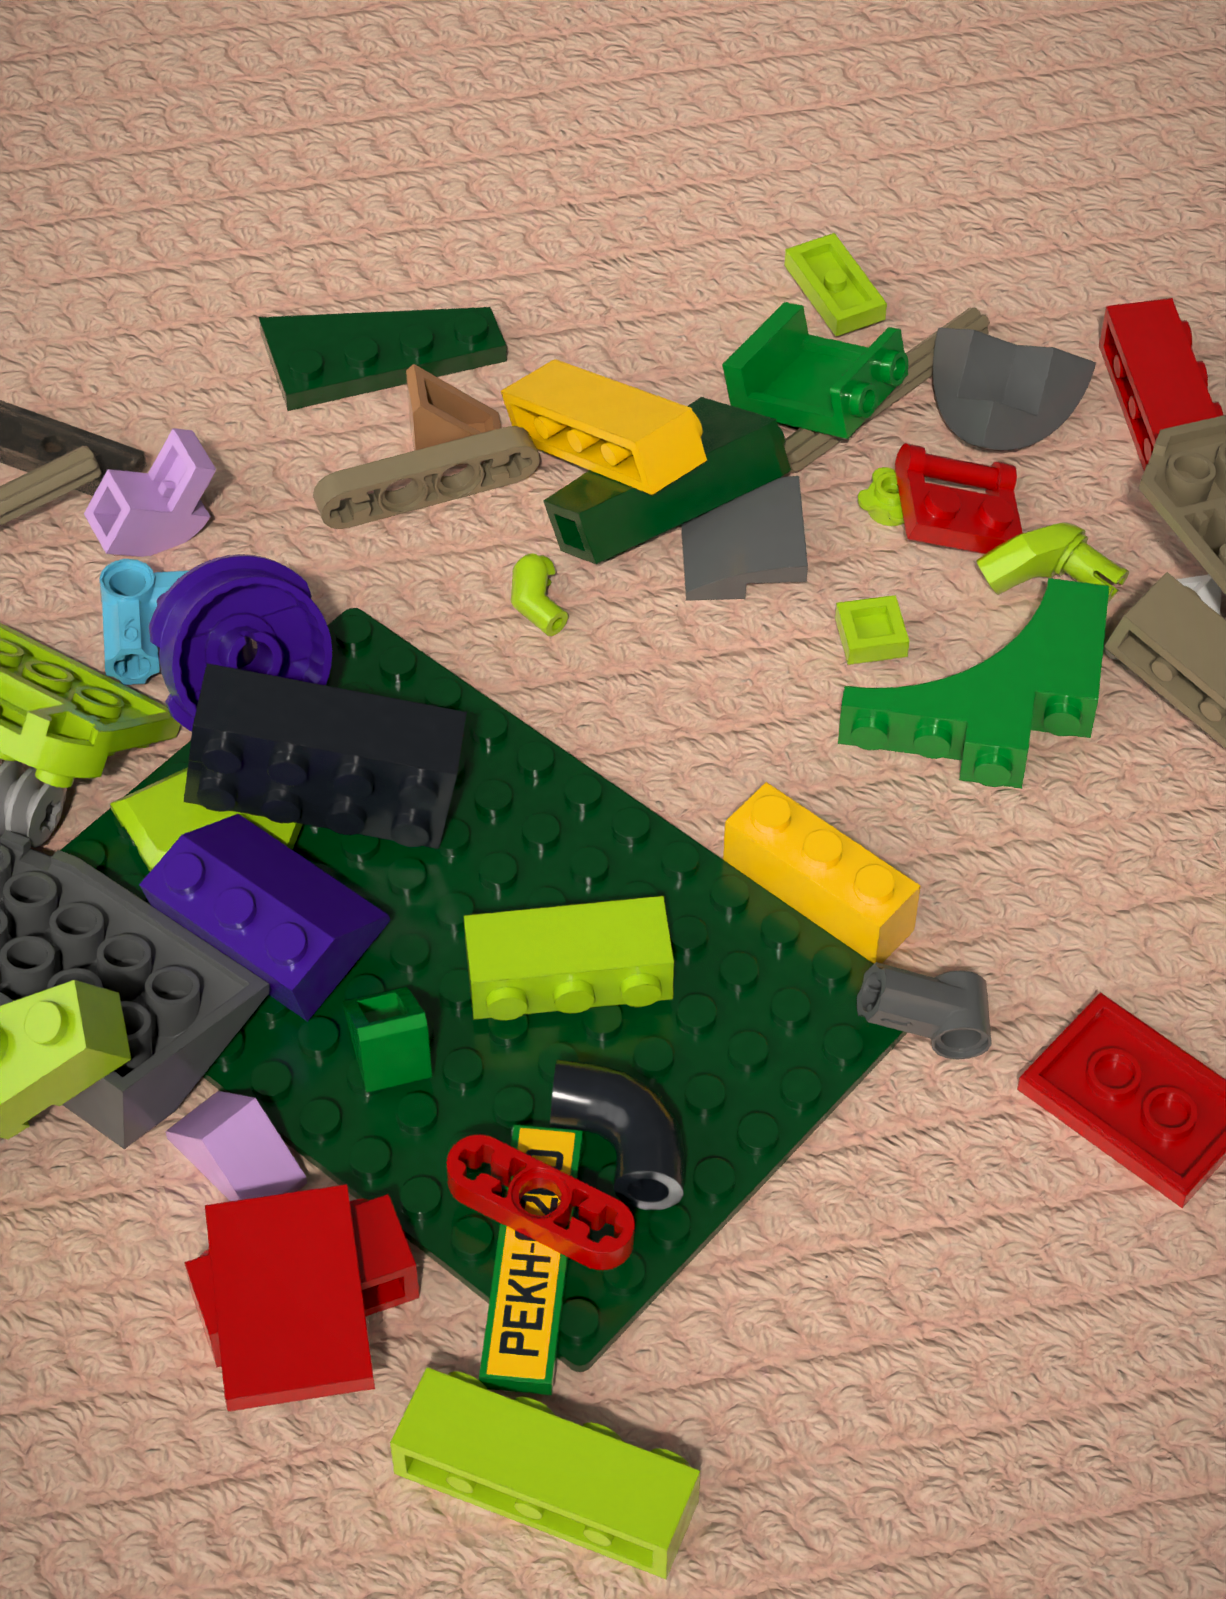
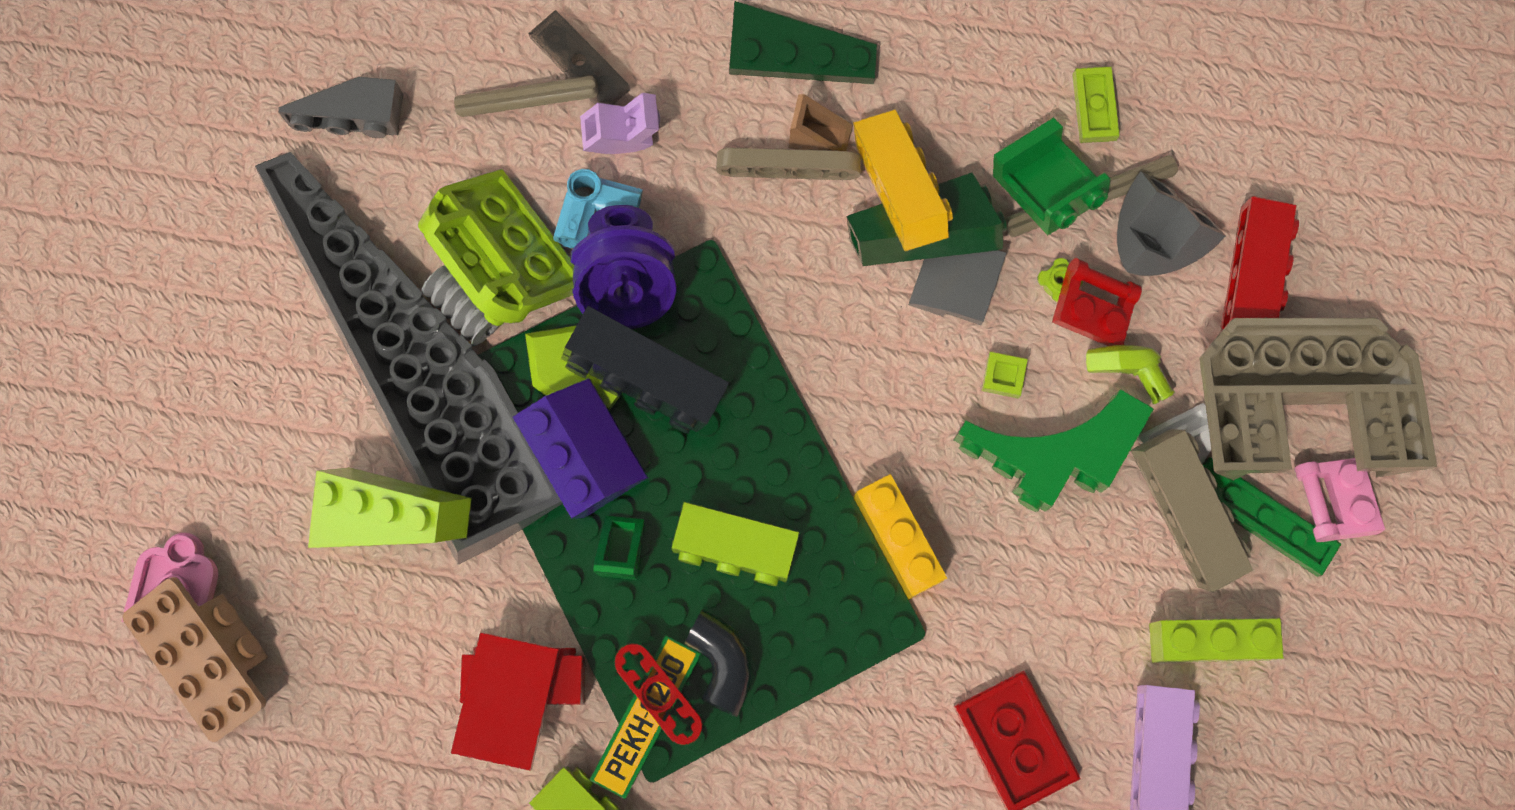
camera: 20 degrees right, 25 degrees up
(237, 1148) = (518, 583): lavender slope -> none
(530, 597) = (816, 271): lime arm -> none
(944, 1008) = (928, 650): dark grey piece -> none

